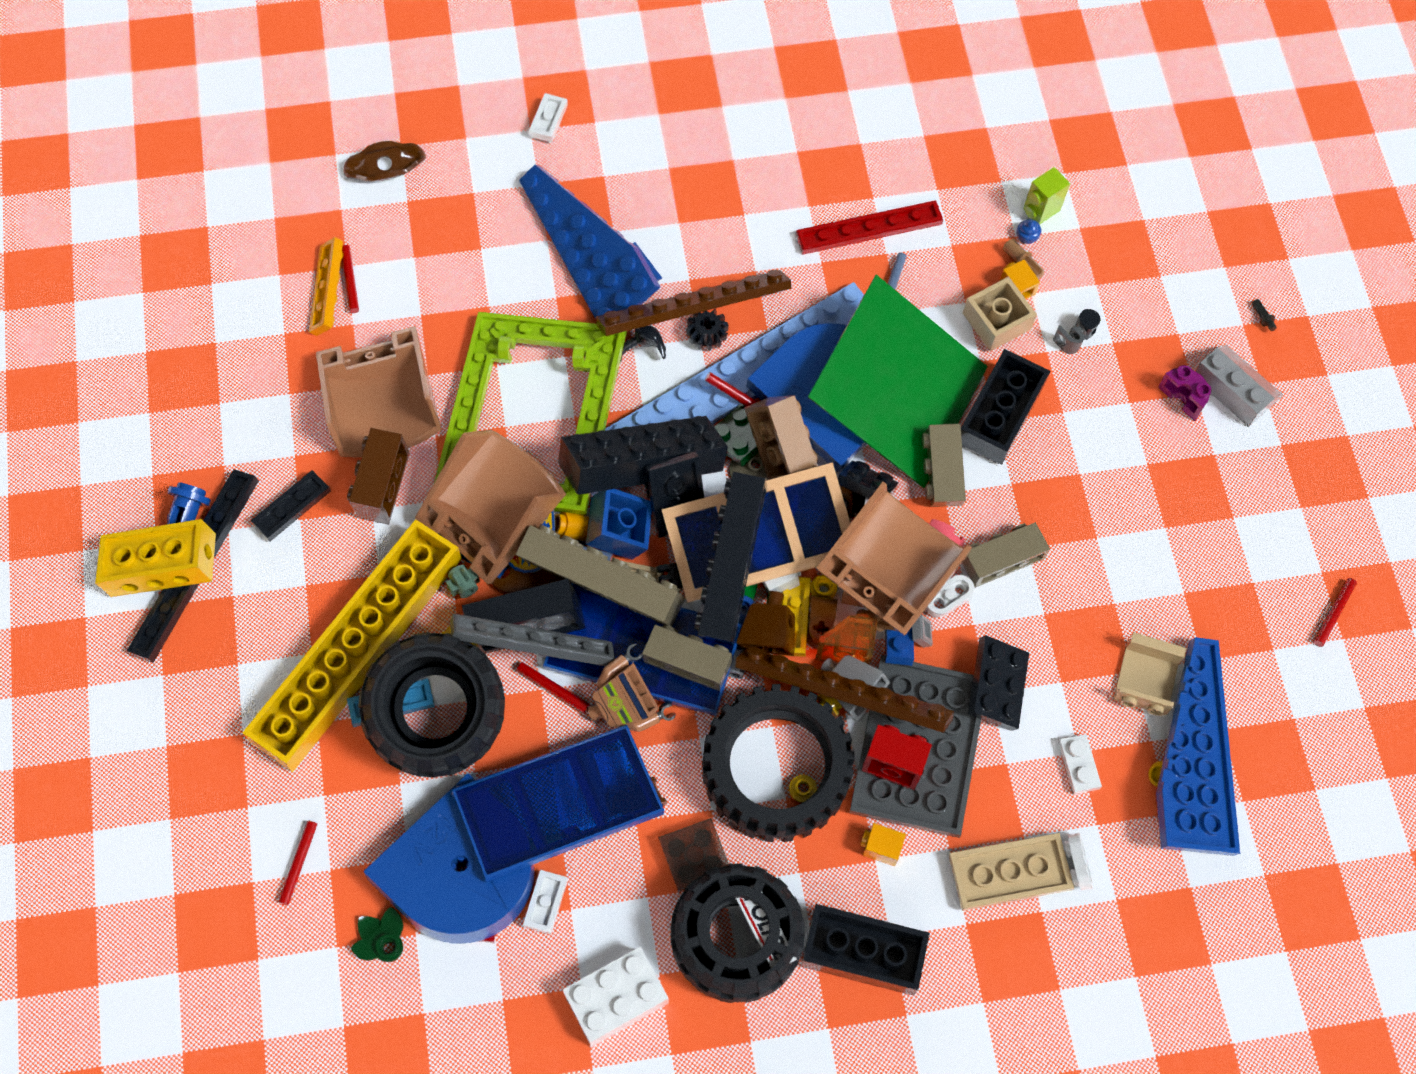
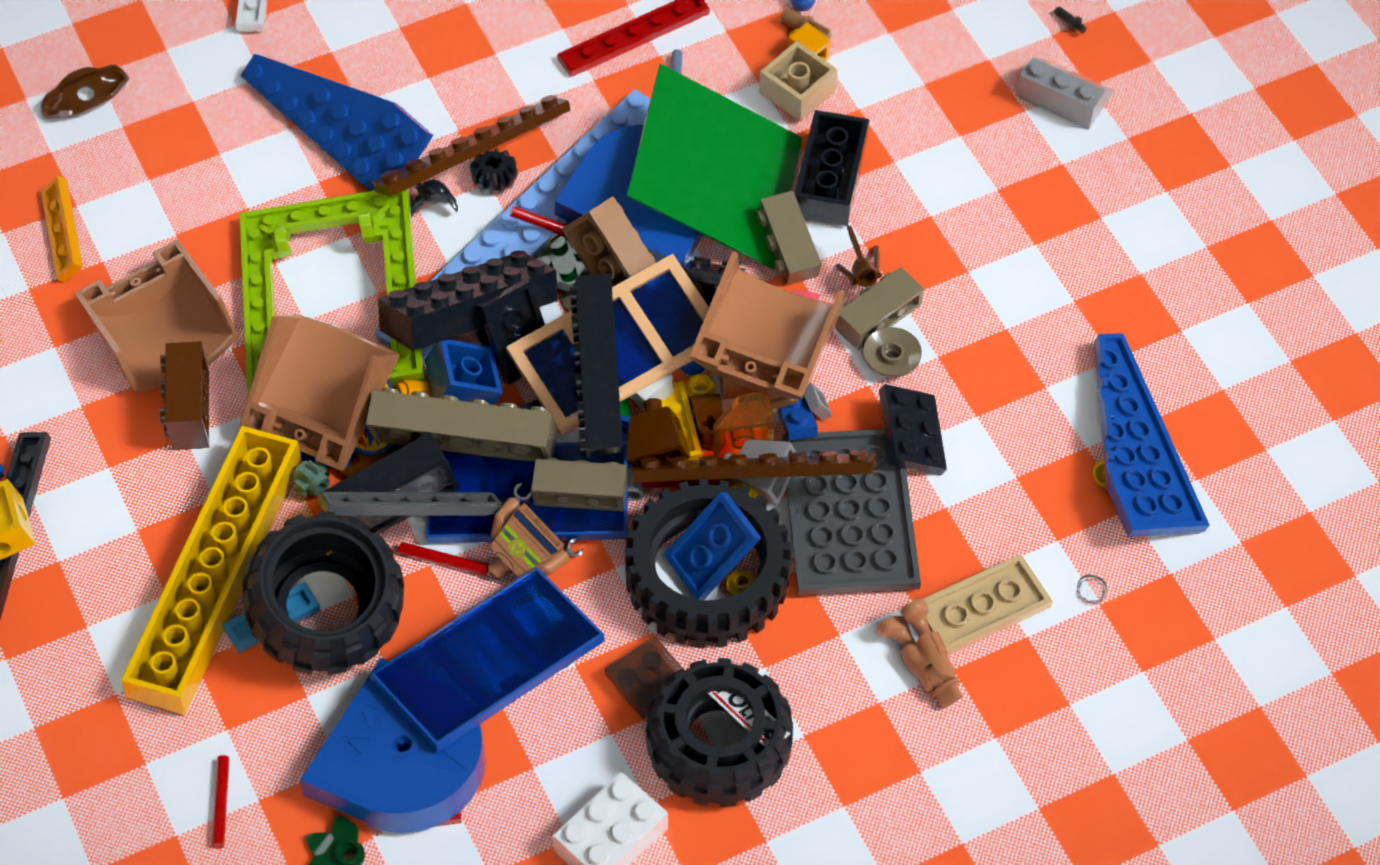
camera: 15 degrees left, 10 degrees down
(291, 505) = (95, 454): black plate -> none
(349, 280) = (85, 219): red bar -> none
(545, 902) = (504, 765): white plate -> none
(785, 750) = (712, 546): none -> blue plate
(865, 949) = (857, 714): black brick -> none
(883, 844) = (843, 613): light orange brick -> none
(897, 756) = (830, 519): red brick -> none
(945, 908) = (925, 658): none -> nougat piece
(950, 598) = (833, 364): white plate -> none
(1002, 517) = (863, 270): none -> reddish brown plant
(1006, 590) = (896, 343): none -> dark tan dish
(1079, 764) = (1020, 487): white plate -> none
(1081, 874) = (1055, 585): white plate -> none
(1084, 329) = (890, 77): leg -> none
(1113, 884) = (1091, 589): none -> clear piece
(1148, 674) = (1062, 382): tan panel -> none
(1188, 387) = (1014, 104): magenta cylinder -> none
(1335, 612) = (1232, 279): red bar -> none

